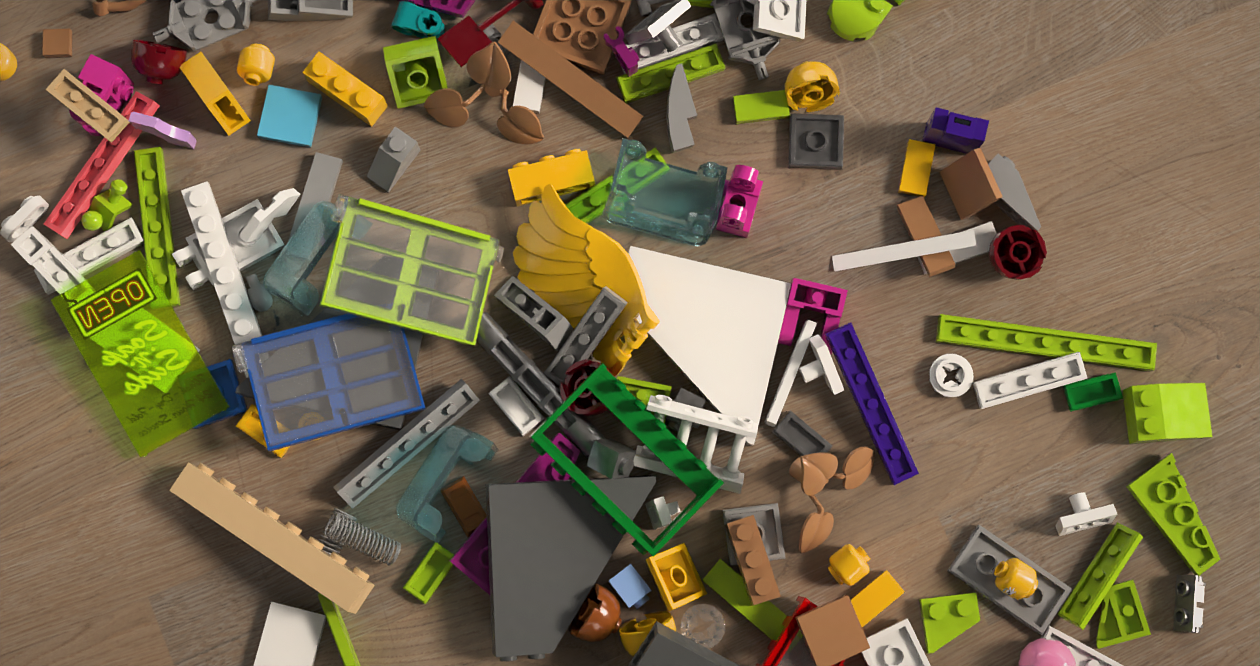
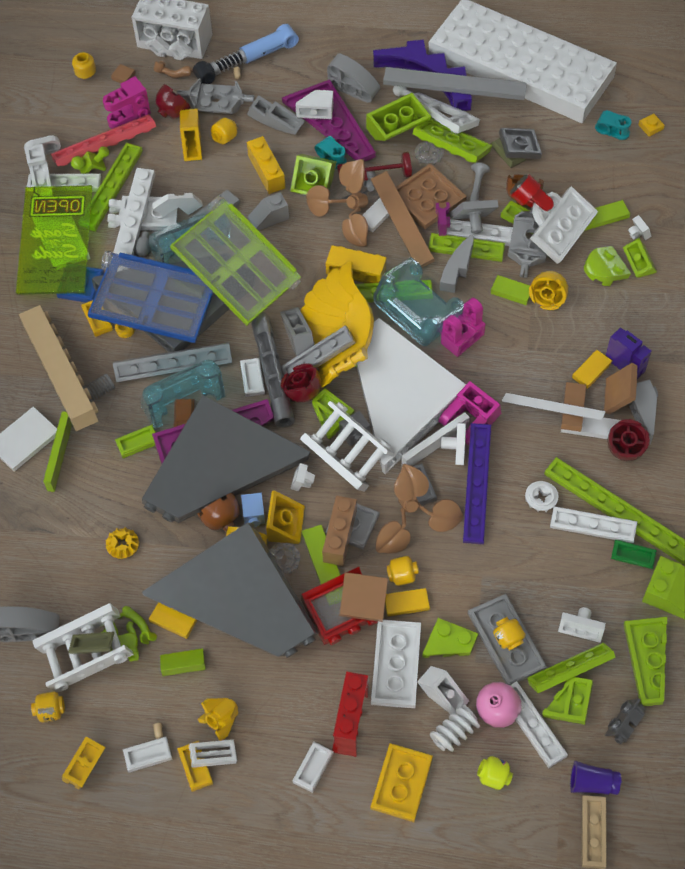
camera: 35 degrees right, 20 degrees down
(87, 105) = (114, 96): tan plate -> none
(163, 130) = (144, 129): lavender tile -> none
(289, 116) = (225, 166): medium azure tile -> none
(359, 540) = (108, 405): light grey piece -> none
(611, 458) = (289, 426): flat silver brick -> none
(653, 435) = (321, 417): green window -> none
(816, 141) = (535, 324): flat silver tile -> none

